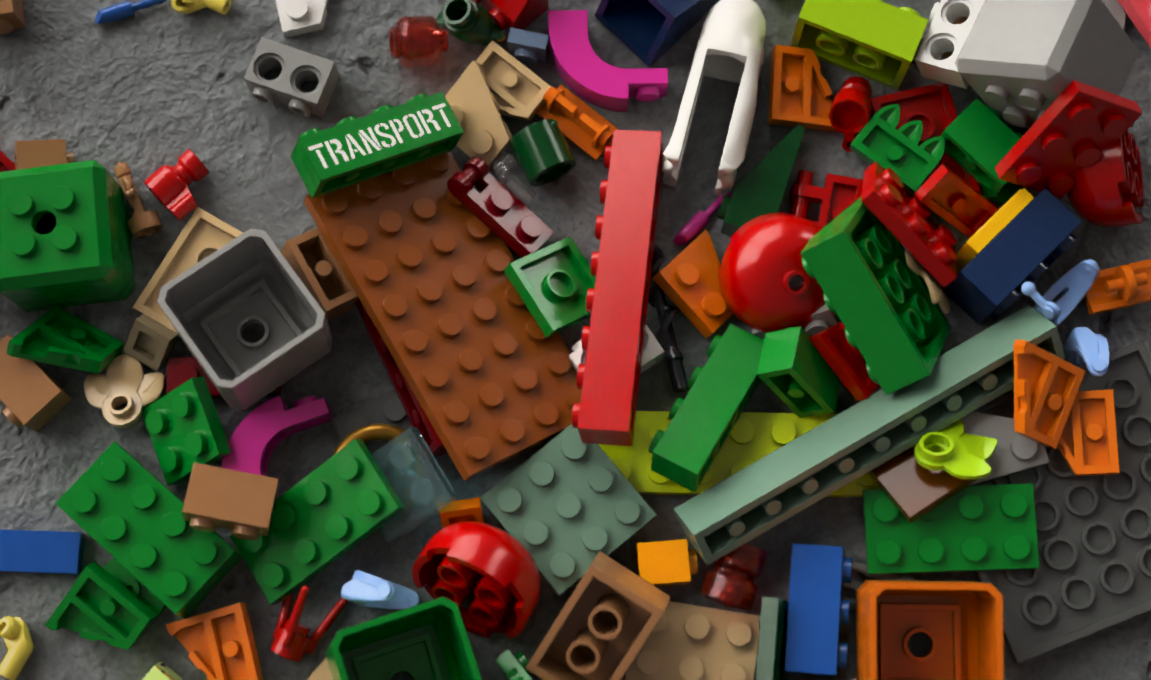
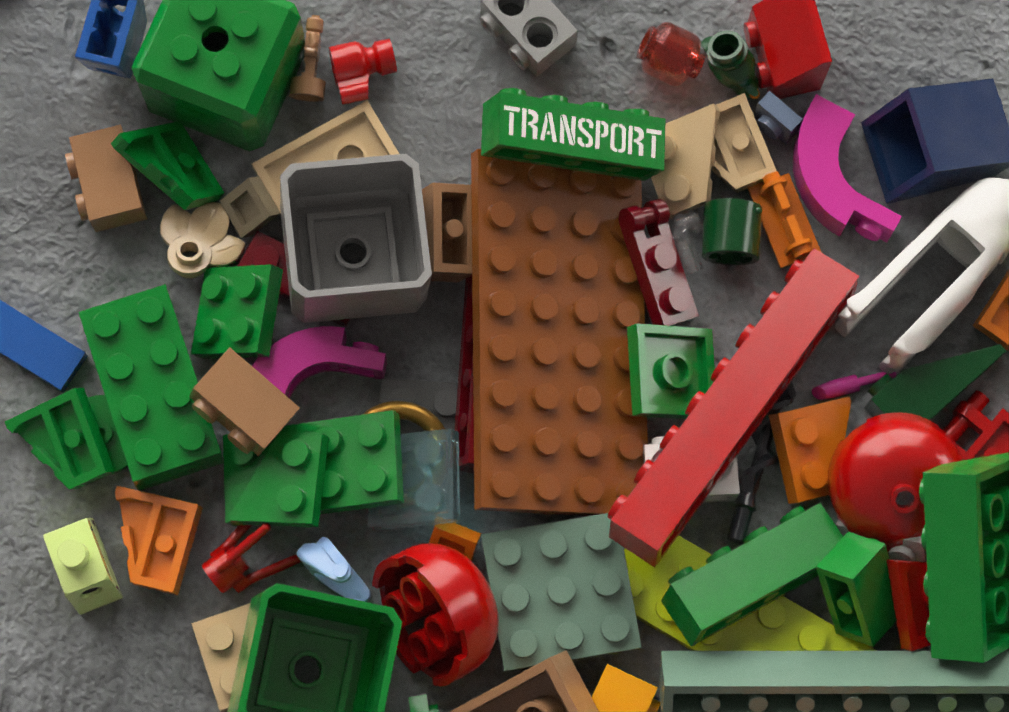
camera: 25 degrees right, 0 degrees up
(301, 545) = (286, 483): none -> green wing

